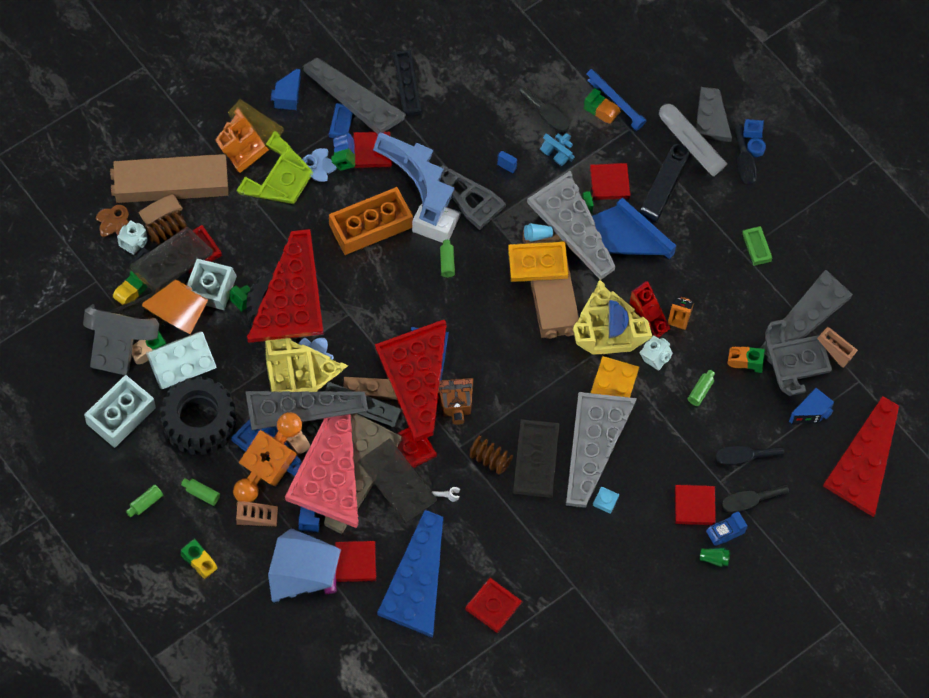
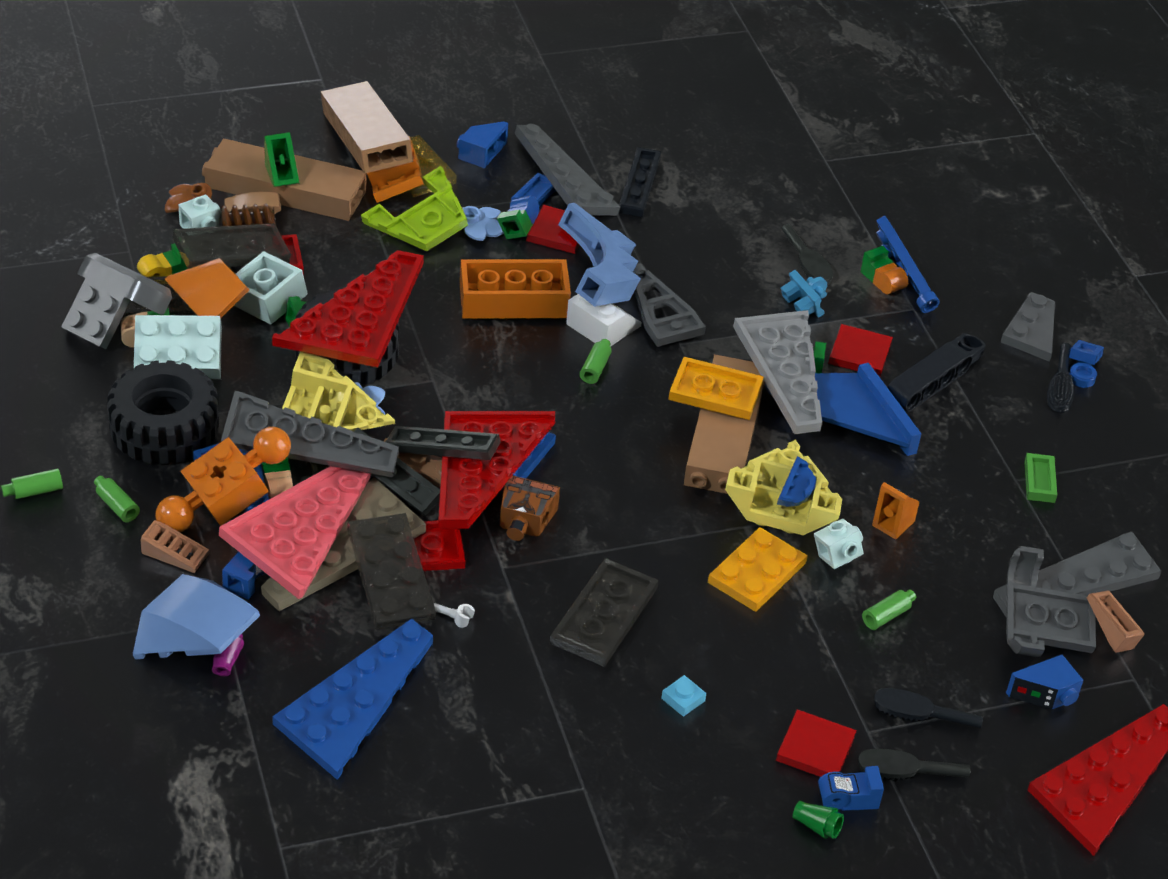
camera: 20 degrees right, 20 degrees down
(120, 411) = (64, 376): light aqua brick -> none
(168, 173) = (280, 159): none -> green slope
(198, 559) = (61, 568): leg -> none
(206, 113) = (366, 127): none -> brick
(356, 561) = (278, 647): red tile -> none
(387, 374) = (444, 442): none -> pearl dark grey tile
(490, 456) = (540, 584): reddish brown piece -> none
(493, 605) = (449, 768): red tile -> none
(507, 161) = (729, 288): blue tile -> none
(537, 232) = (731, 357): medium azure cone -> none
(595, 435) = (703, 608): light grey wing -> none
(647, 306) = (848, 479): red slope -> none
(692, 139) = (995, 336): light grey piece -> none
(746, 358) = (972, 593): leg -> none

